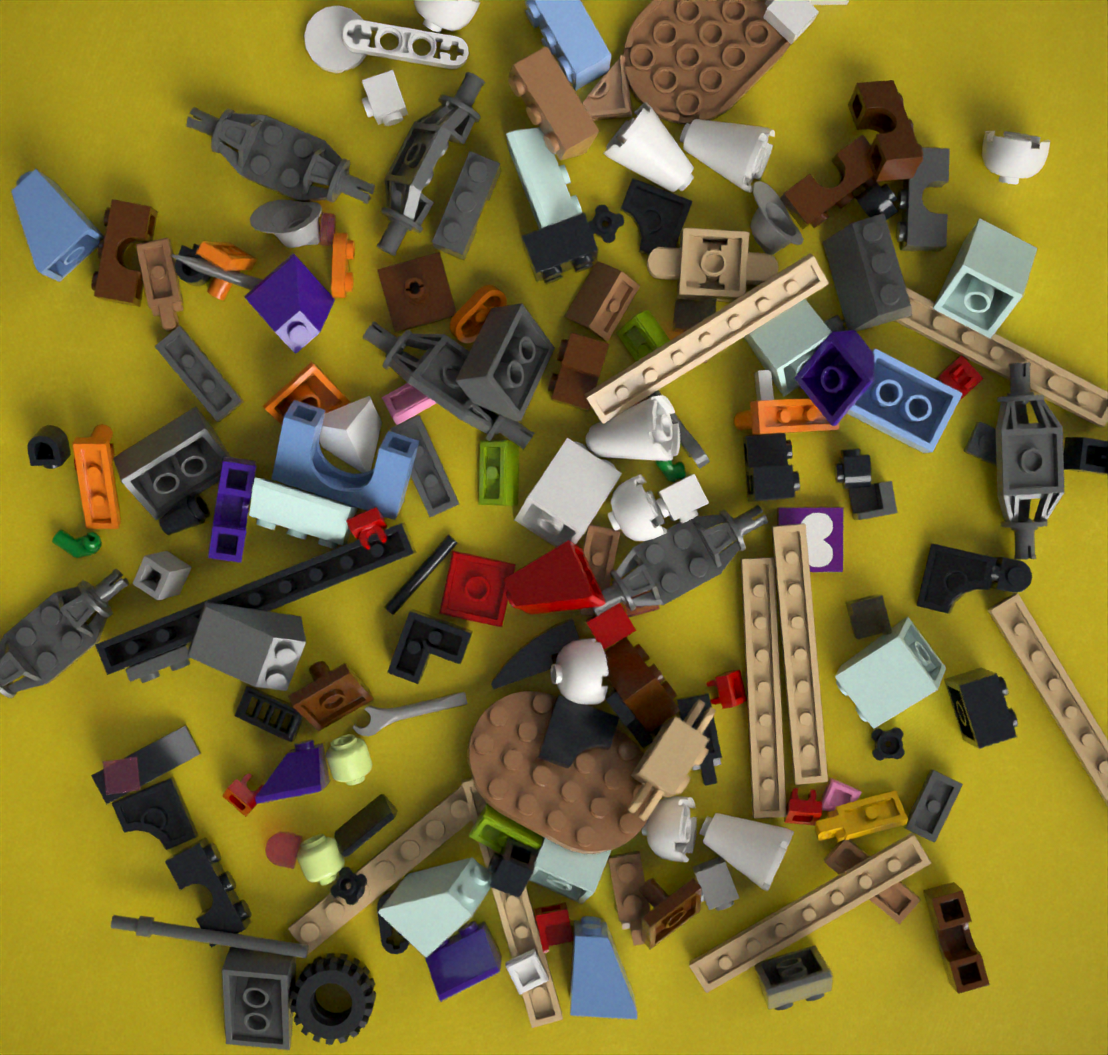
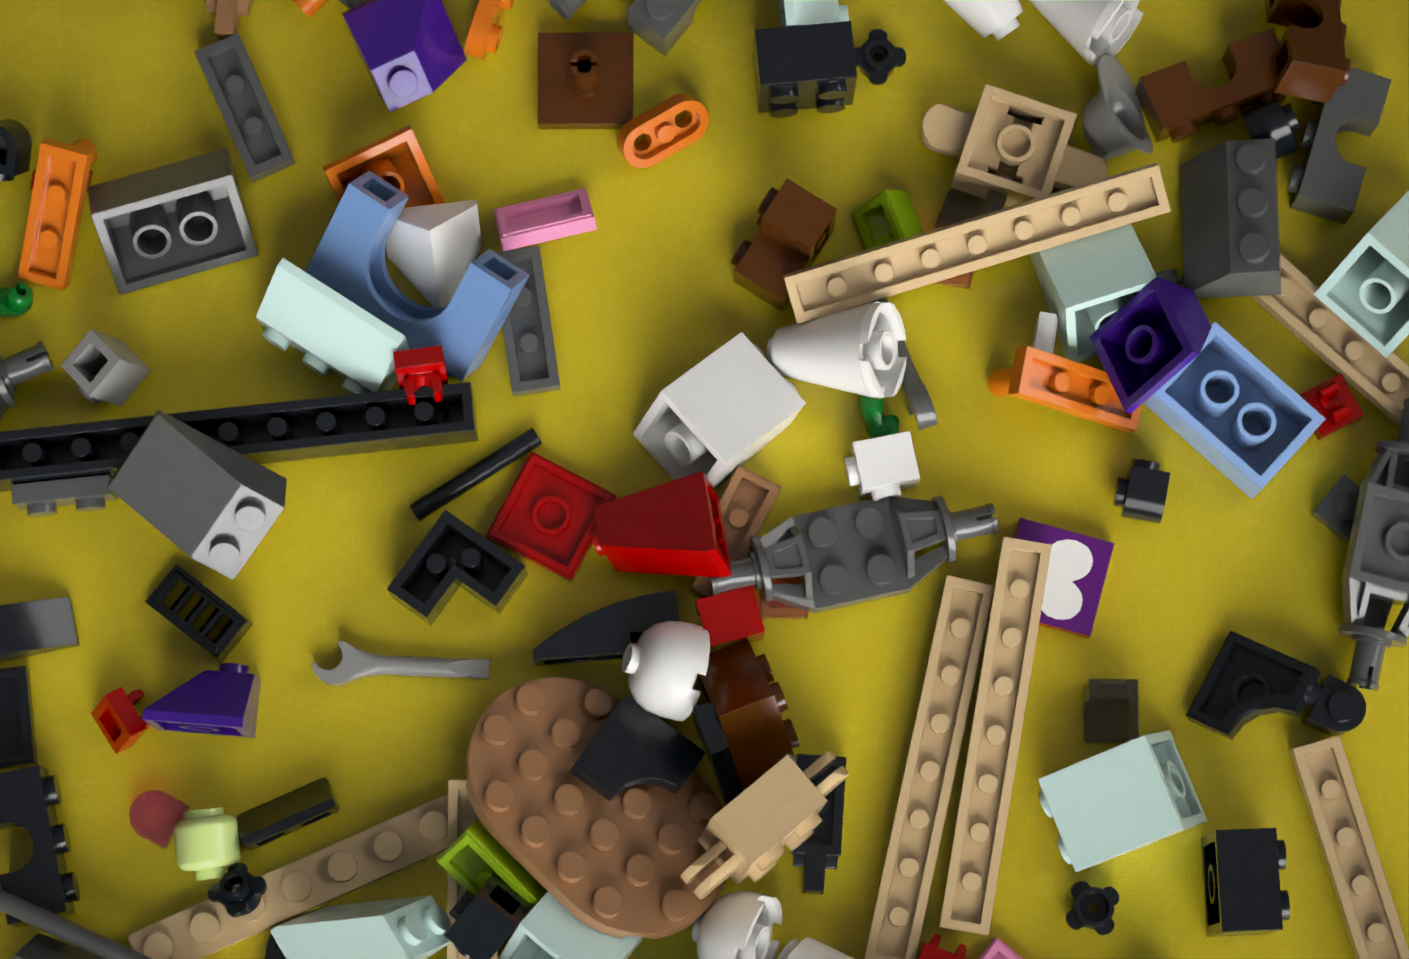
camera: 10 degrees right, 10 degrees down
(185, 515) = (164, 296): black cone -> none
(232, 509) = (234, 300): dark purple arch -> none
(330, 695) = (294, 605): reddish brown tile -> none
(349, 759) = (292, 708): yellowish green head -> none
(436, 378) = (602, 208): dark grey plate -> none
(498, 473) = (629, 361): lime slope -> none
(506, 362) = (684, 201): dark grey slope -> none
(603, 300) = (846, 159): medium nougat panel -> none
(636, 511) = (811, 462): white cylinder -> none
(656, 213) = (952, 63): black tile -> none
(730, 689) = (879, 759): red tile -> none
(768, 468) = (1019, 455): black brick -> none
(872, 501) = (1159, 546): dark grey panel -> none

